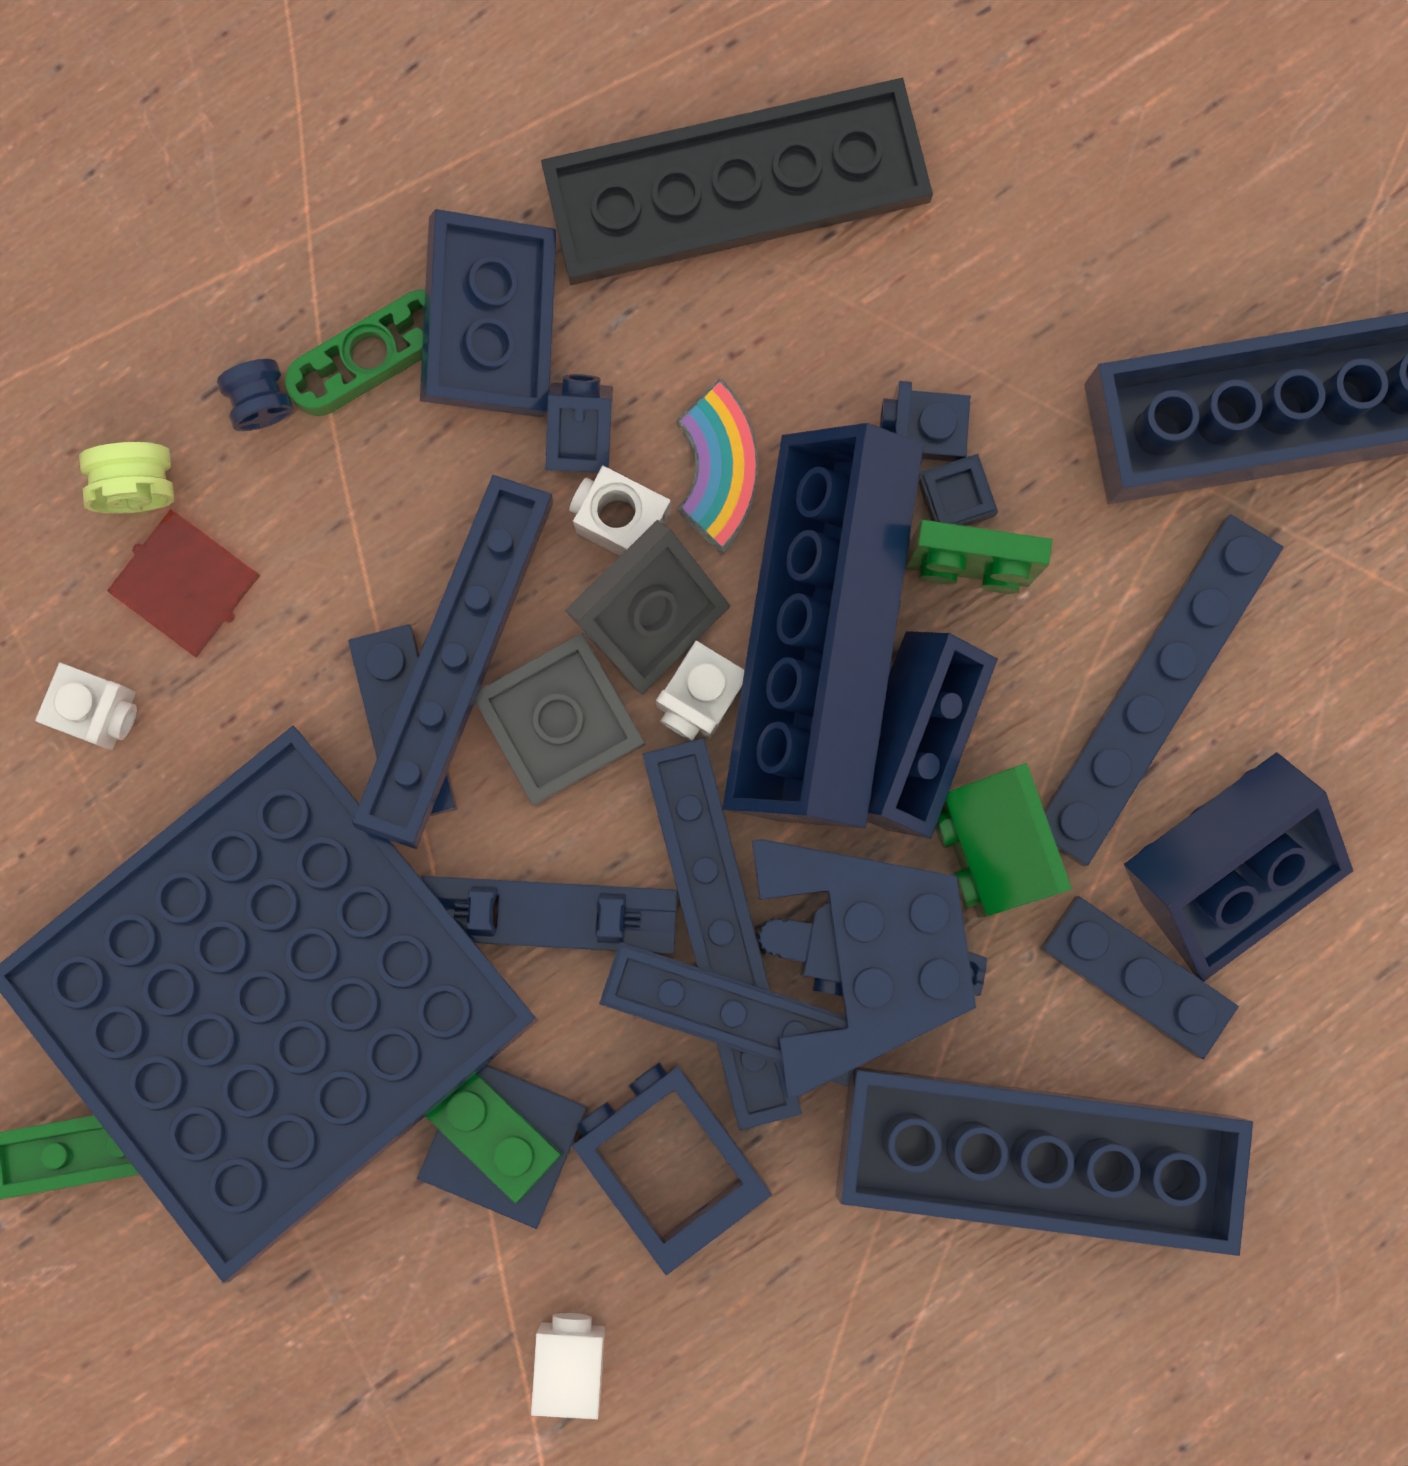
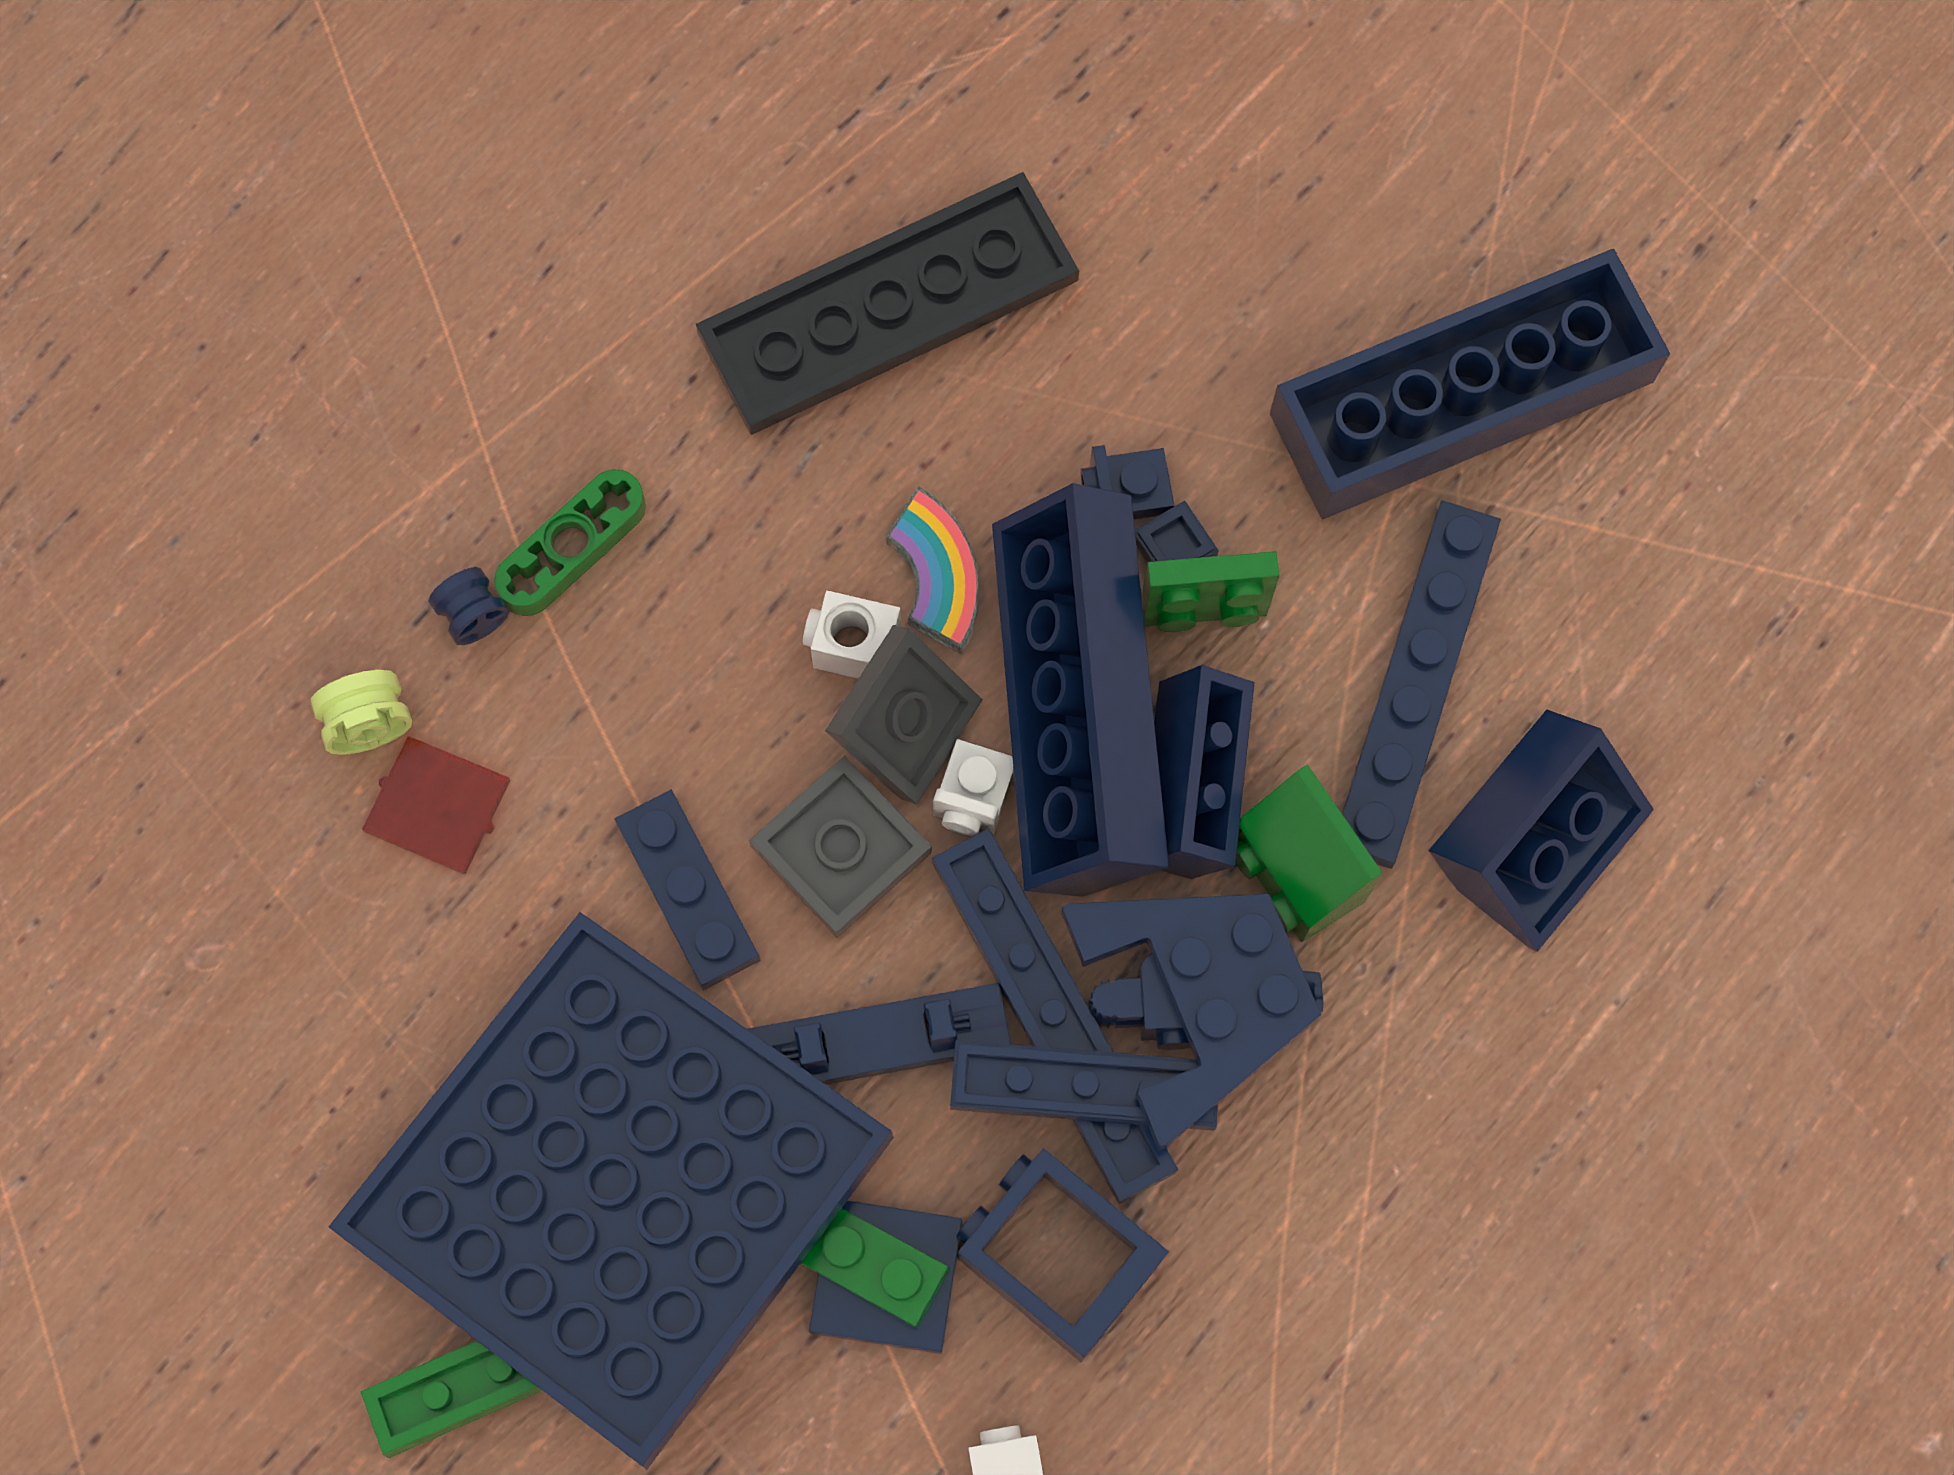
camera: 10 degrees left, 10 degrees down
(88, 707) = (369, 945): white bracket -> none
(453, 662) = (725, 813): dark blue plate -> none
(488, 314) = (679, 477): dark blue plate -> none
(578, 424) = (792, 561): dark blue bracket -> none
(1044, 1161) = (1426, 1153): dark blue brick -> none
(1139, 977) = (1474, 961): dark blue plate -> none

